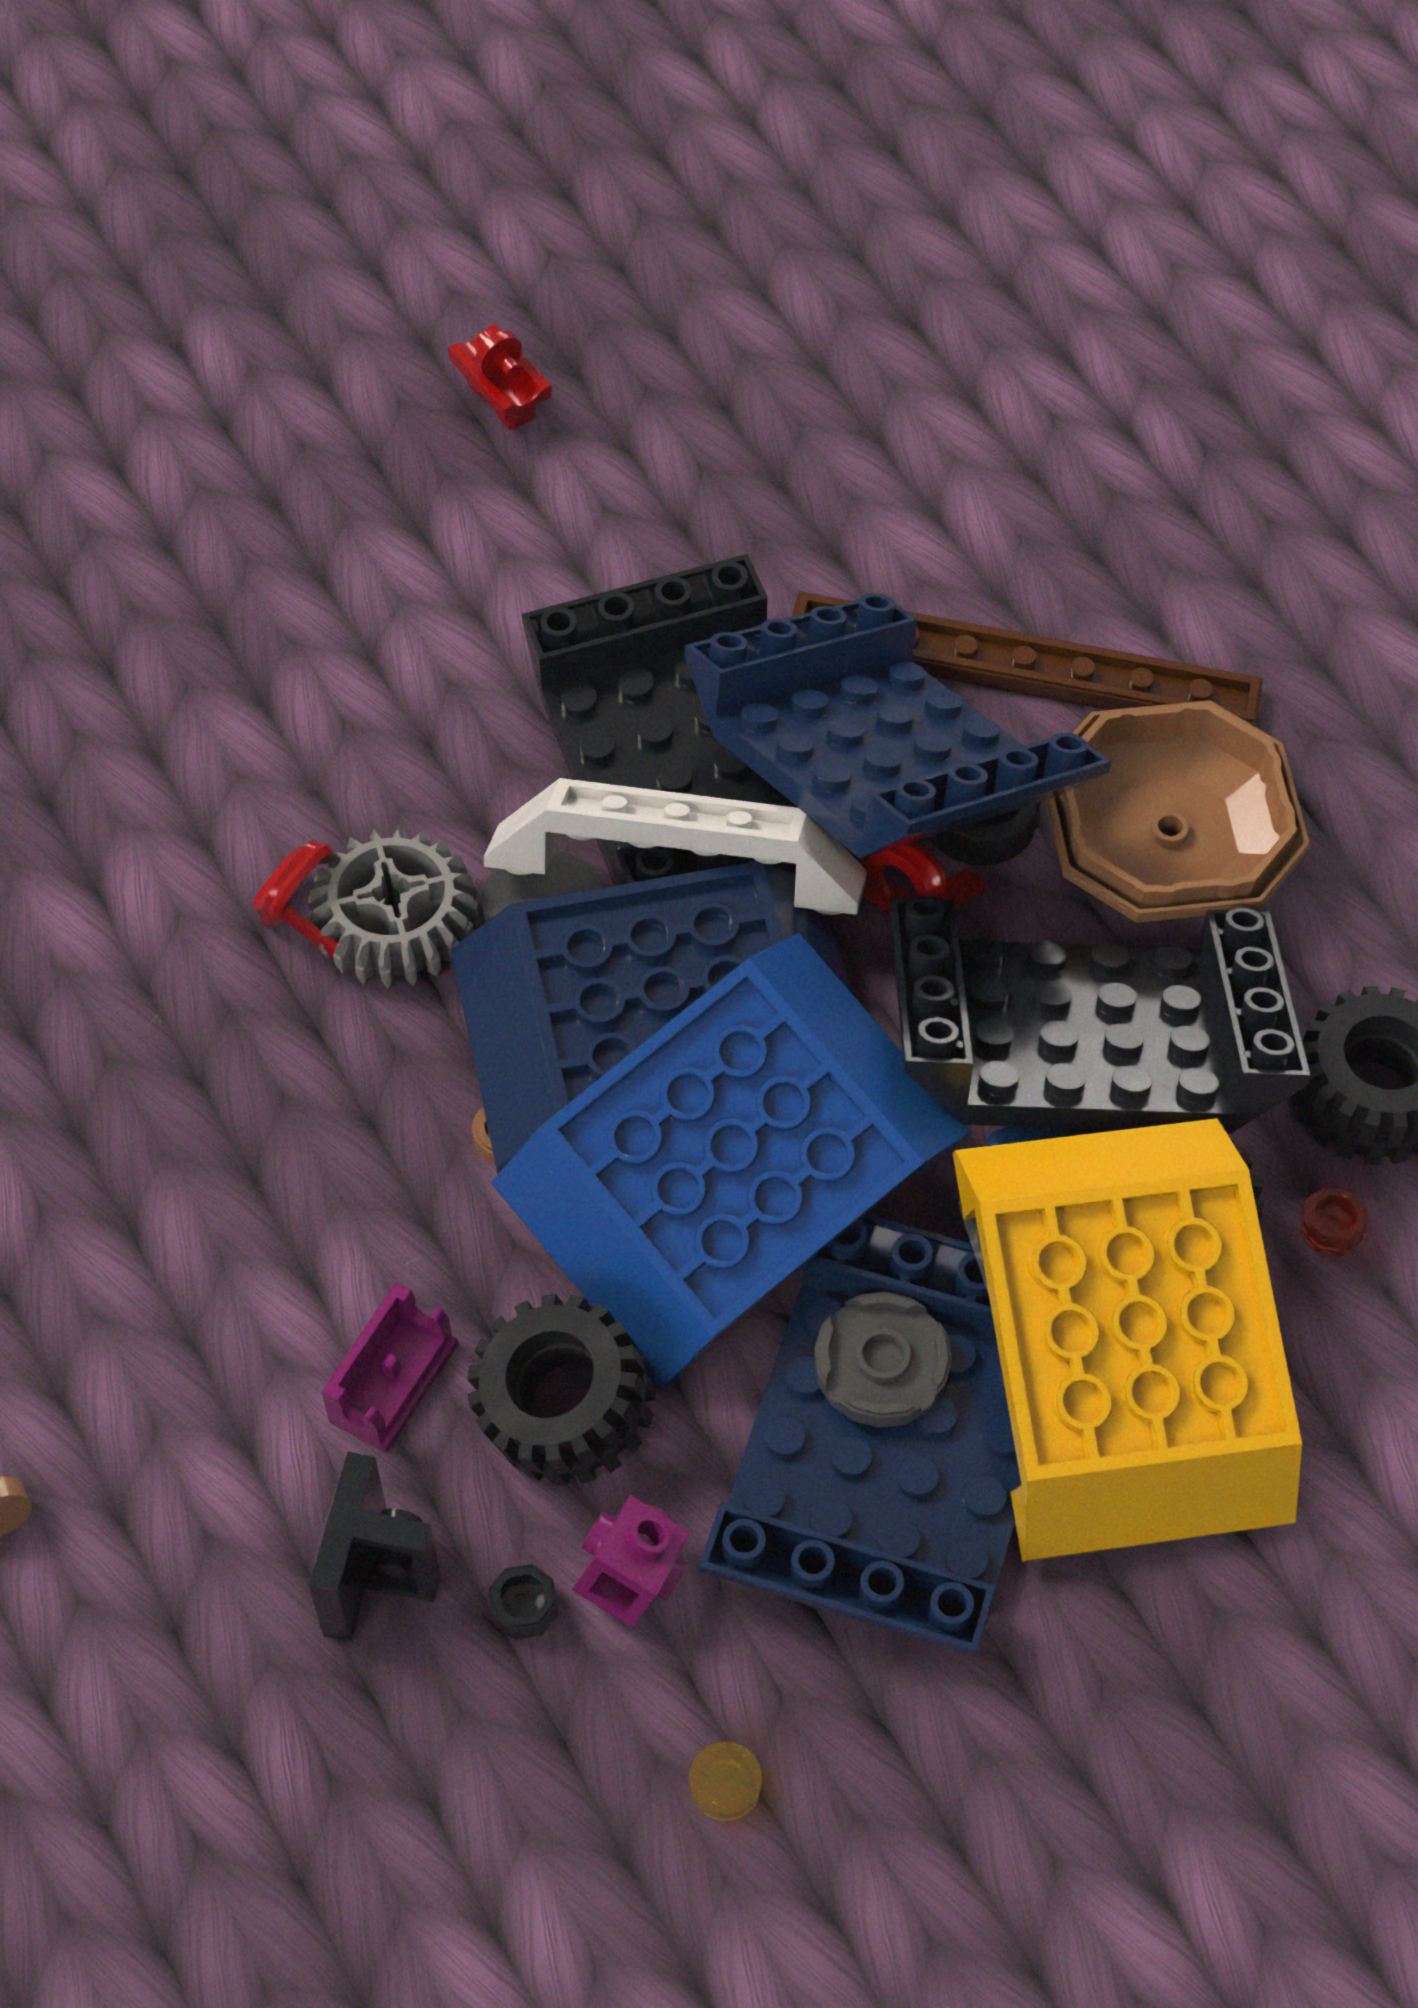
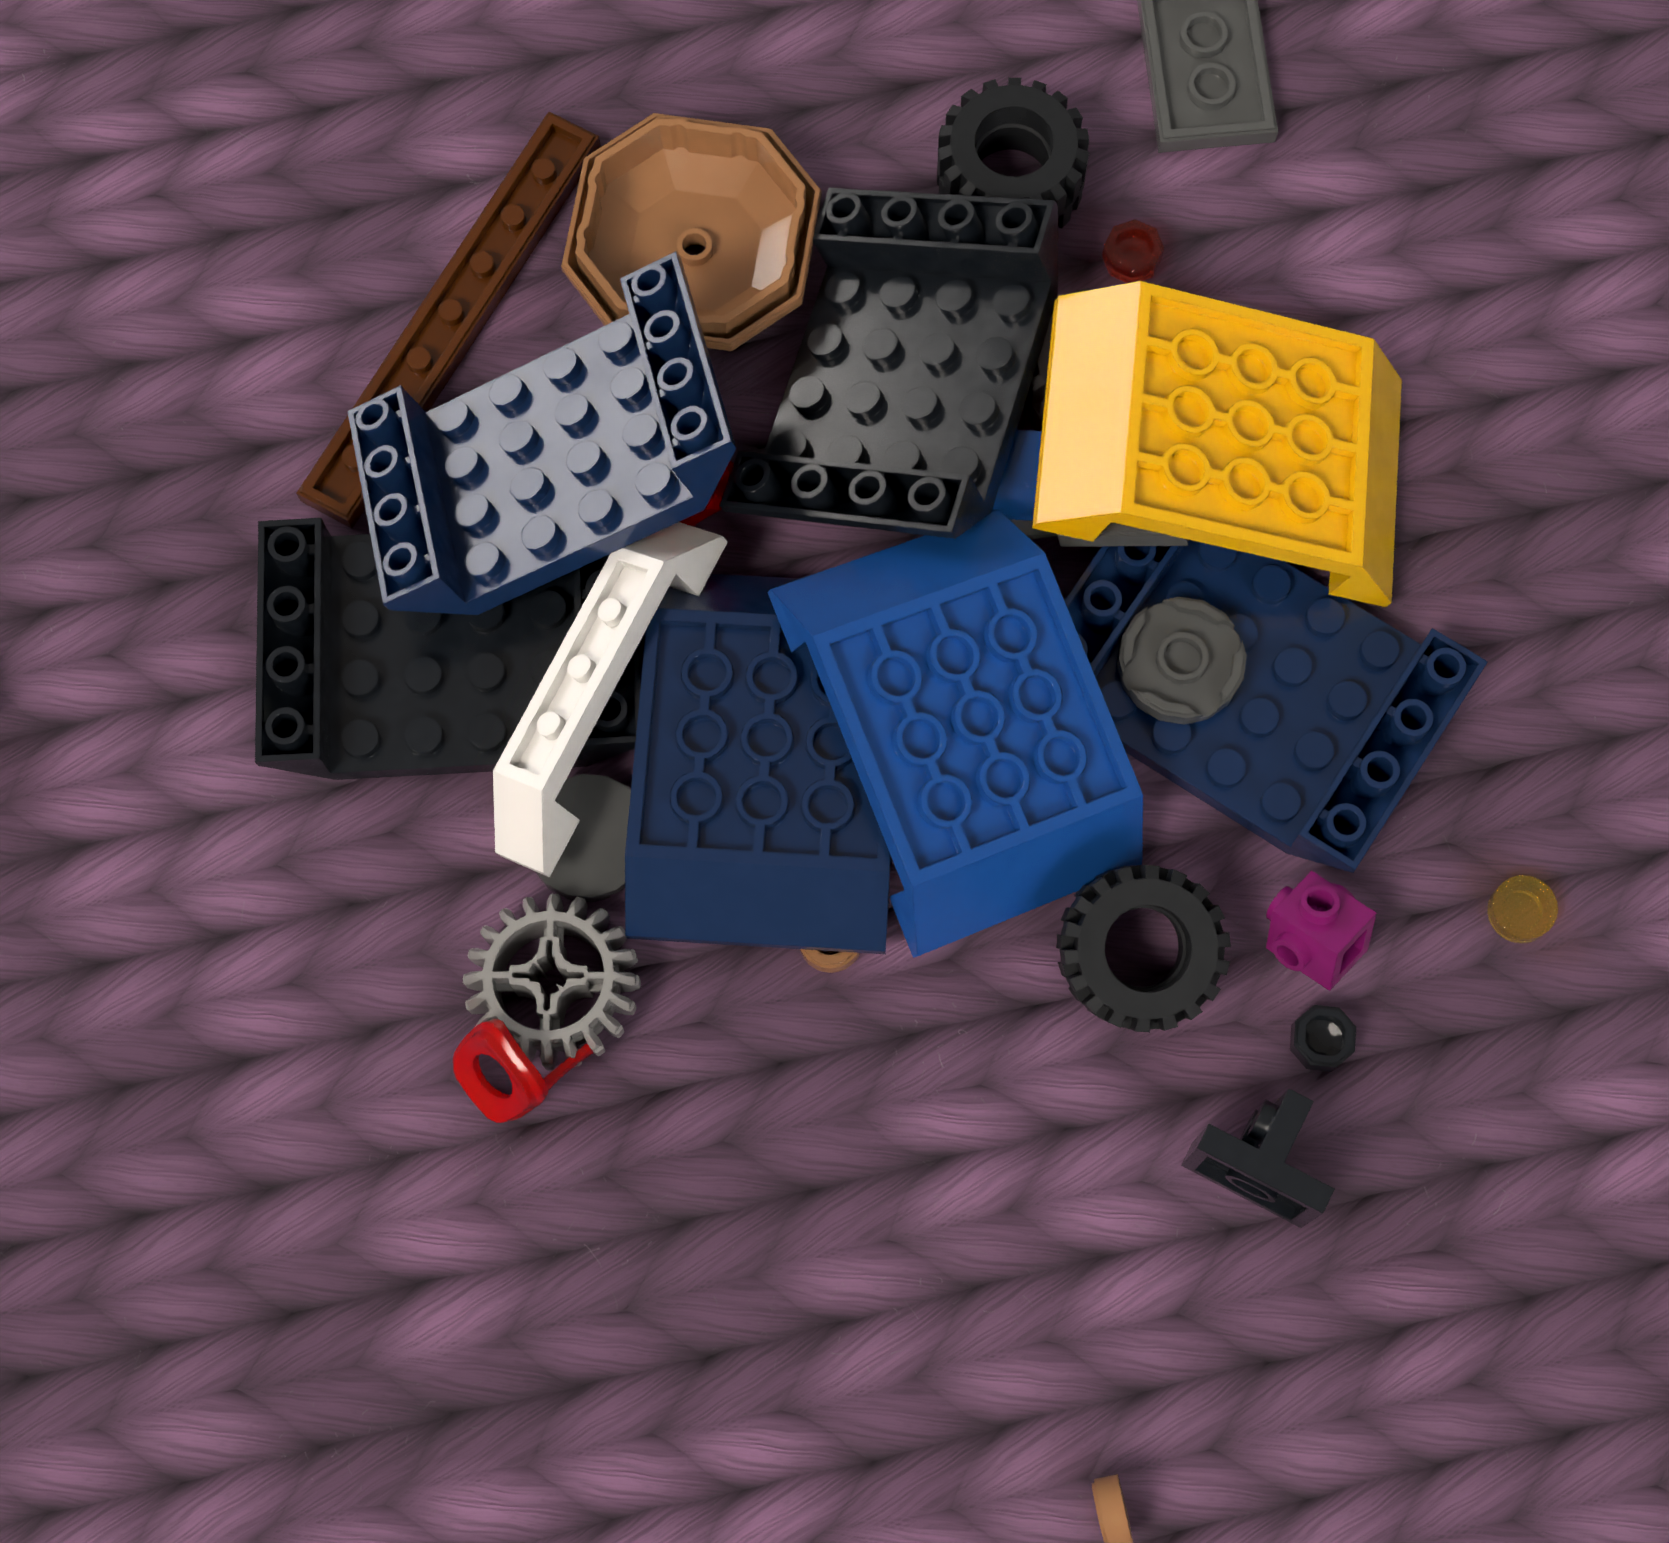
camera: 70 degrees left, 15 degrees up
(389, 1369) = (1063, 1104): magenta hinge -> none

